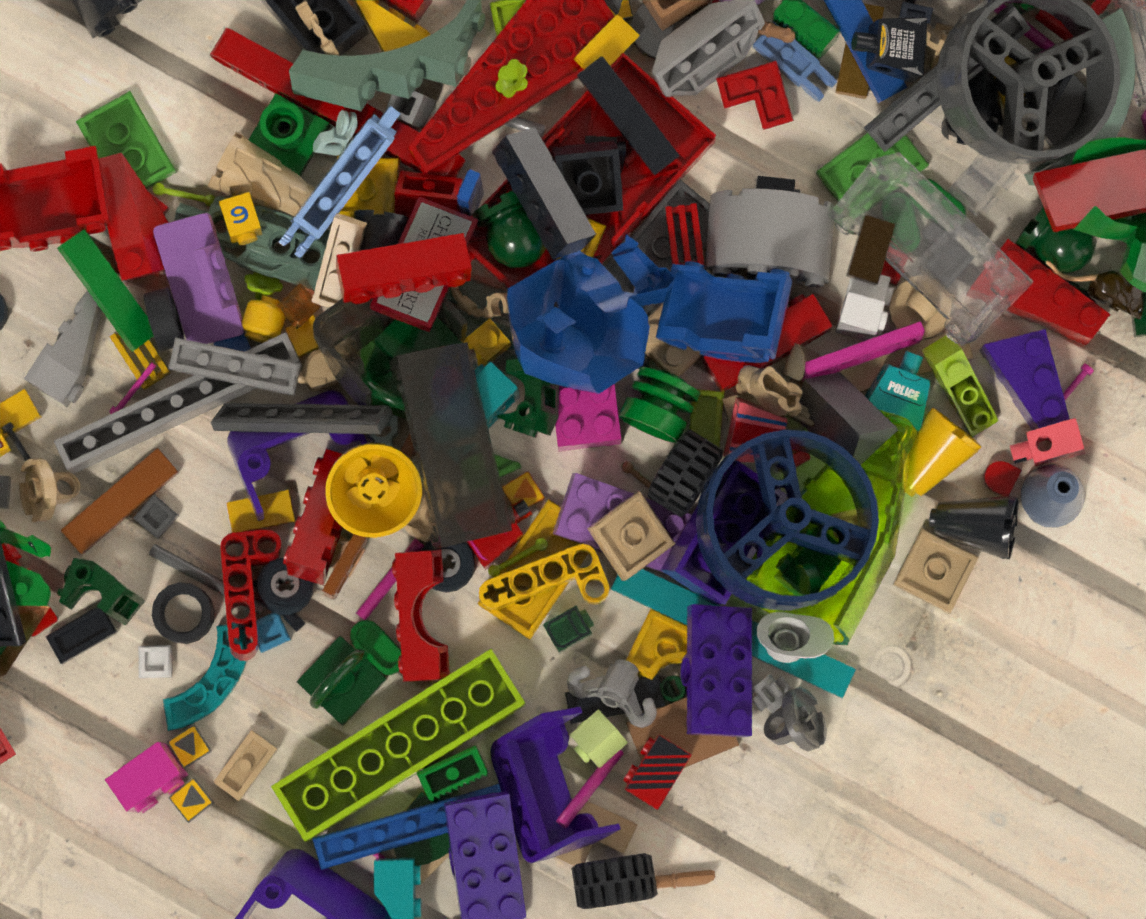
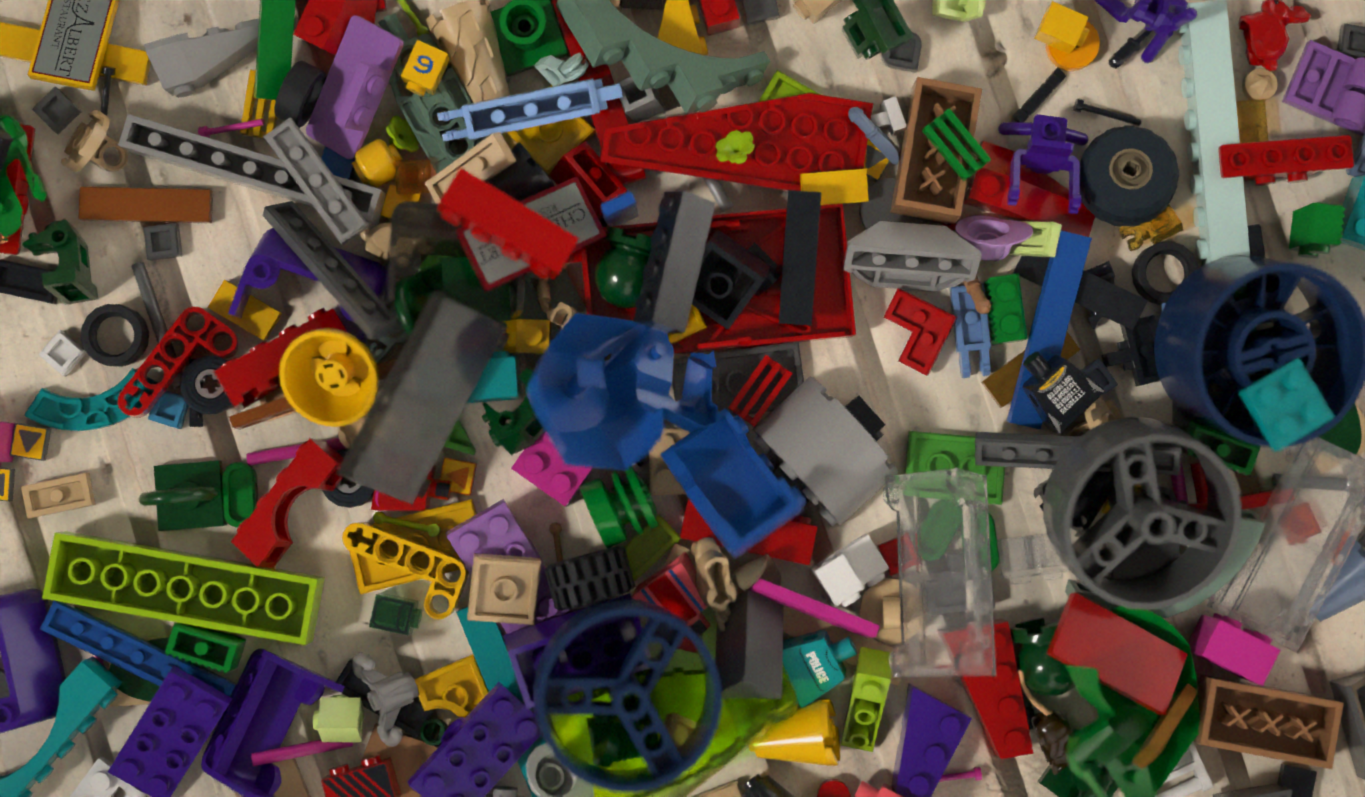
camera: 35 degrees right, 5 degrees up
(870, 250) = (892, 534): dark brown tile -> none

